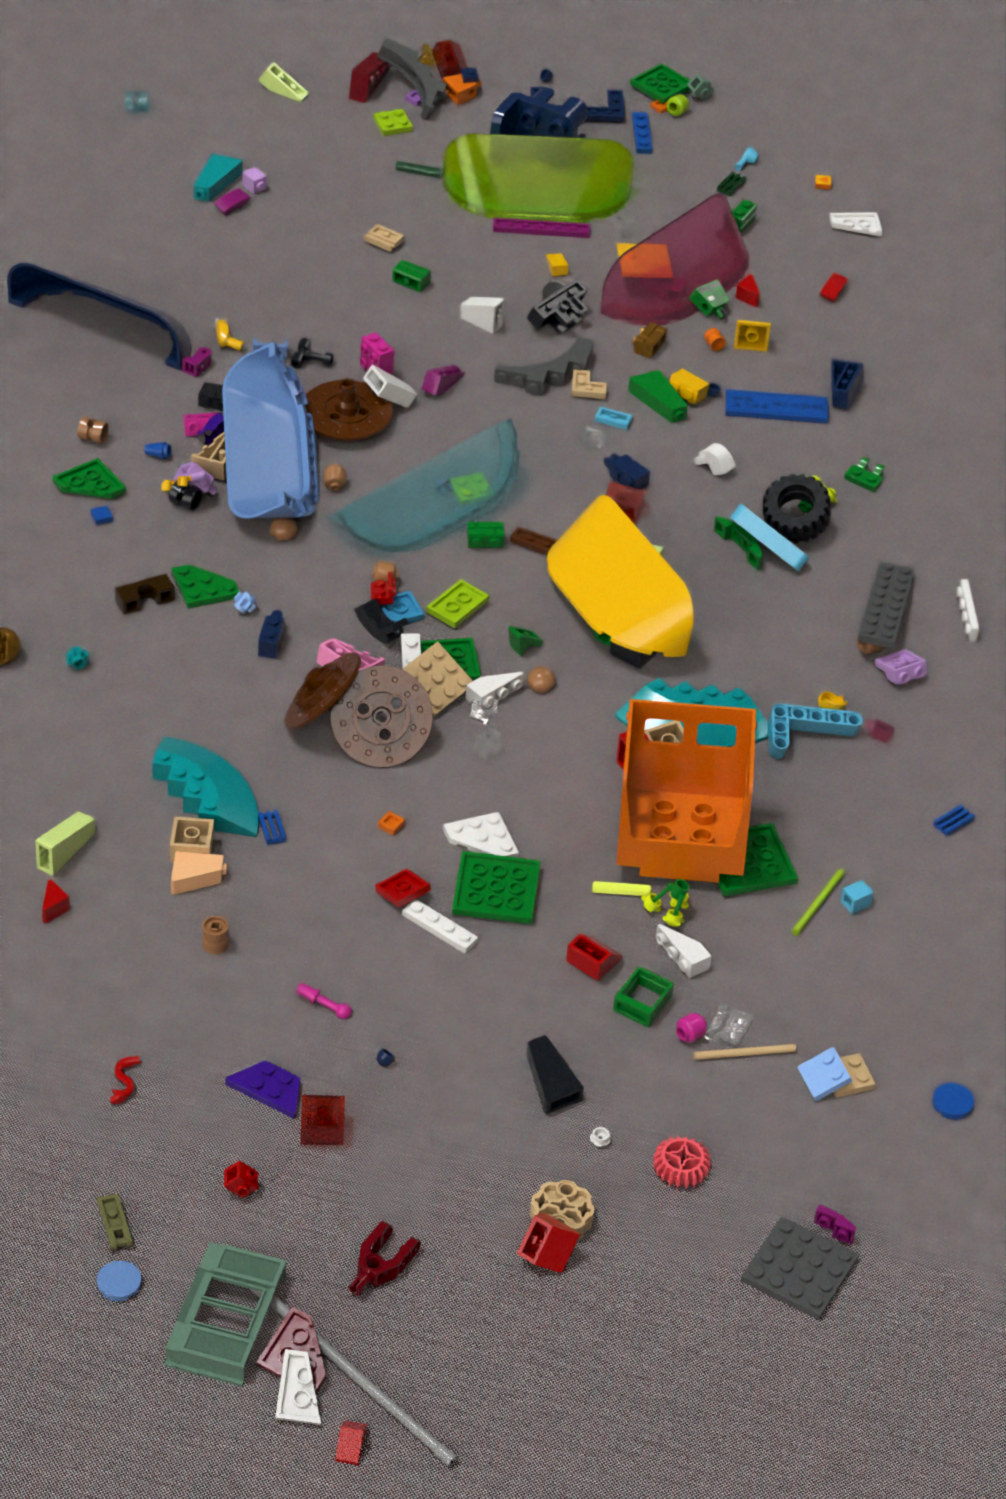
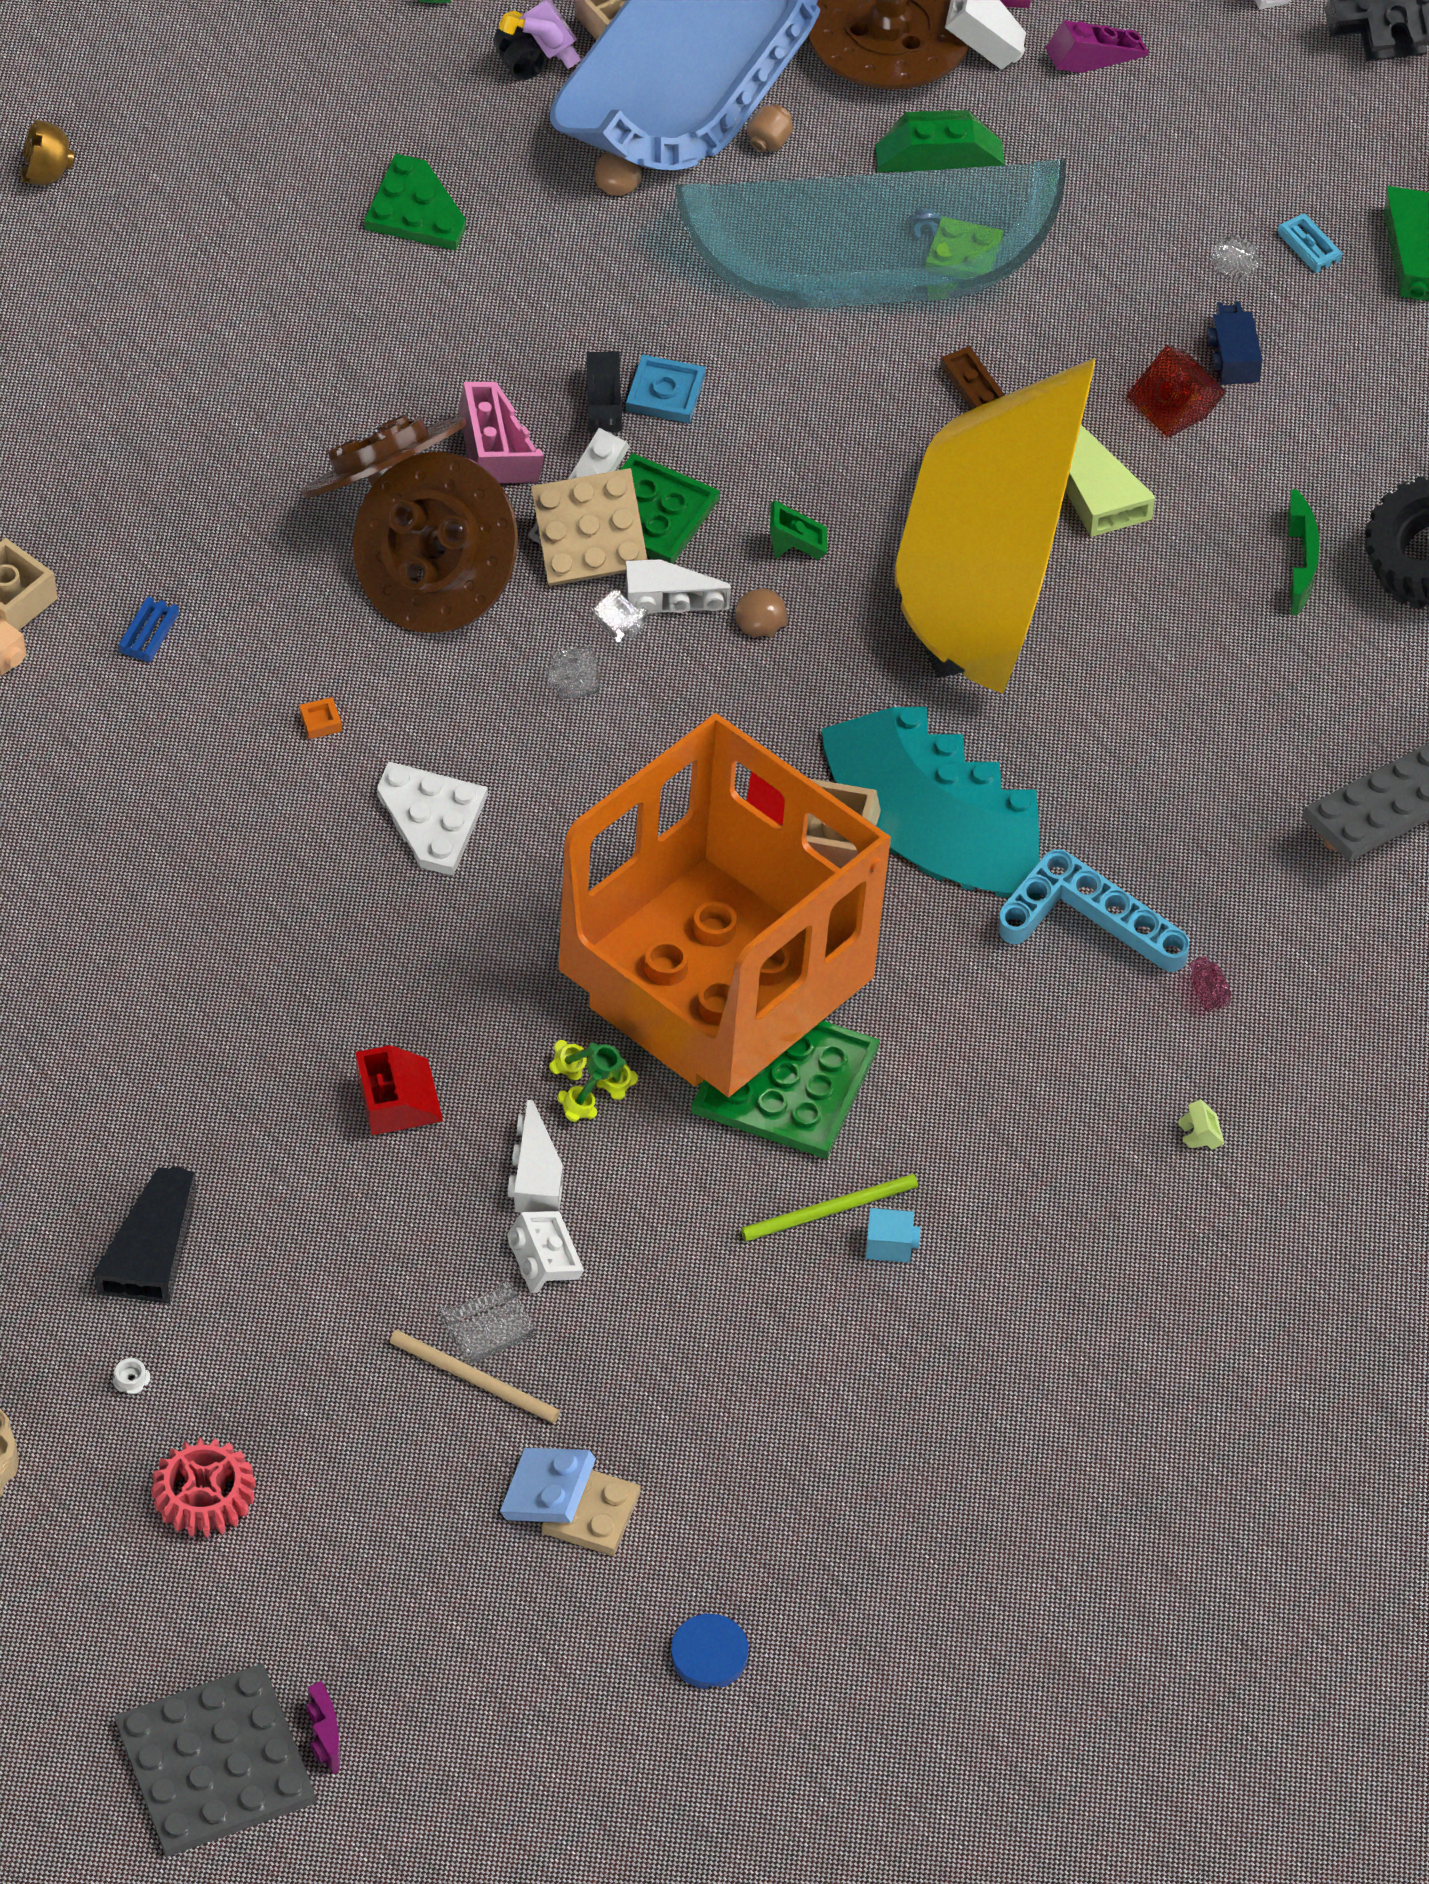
camera: 40 degrees right, 10 degrees up
(77, 657) = (128, 225): teal gear -> none
(101, 515) = (381, 21): blue tile -> none
(157, 588) = (295, 166): dark brown arch -> none
(207, 786) = (117, 515): teal brick -> none
(245, 602) = (442, 260): light blue gear -> none
(271, 635) = (430, 331): dark blue brick -> none
(381, 570) = (691, 319): medium nougat head -> none
(383, 590) = (658, 347): red bracket -> none
(402, 888) = (228, 827): red plate -> none
(413, 450) = (938, 142): none -> green wedge
(440, 926) = (232, 916): white plate -> none
(457, 603) = (756, 424): lime plate -> none
(485, 535) = (906, 334): green brick -> none
(496, 887) = (366, 903): green plate -> none
(552, 372) = (1288, 120): dark grey arch -> none
(585, 388) = (1311, 167): tan plate -> none
(621, 888) = (549, 1012): neon yellow axle -> none
(636, 1010) = (398, 1173): green window -> none
(691, 1027) = (424, 1289): dark pink head -> none
(717, 457) = (1397, 393): white brick -> none
(721, 984) = (543, 1249): none -> white bracket
(769, 537) = (1323, 522): medium azure beam -> none
(831, 701) = (1174, 896): yellow hair -> none
(902, 666) = (1354, 899): lavender plate -> none
(932, 783) = (1205, 1125): none -> yellowish green tile
(951, 818) = (1183, 1196): blue tile -> none

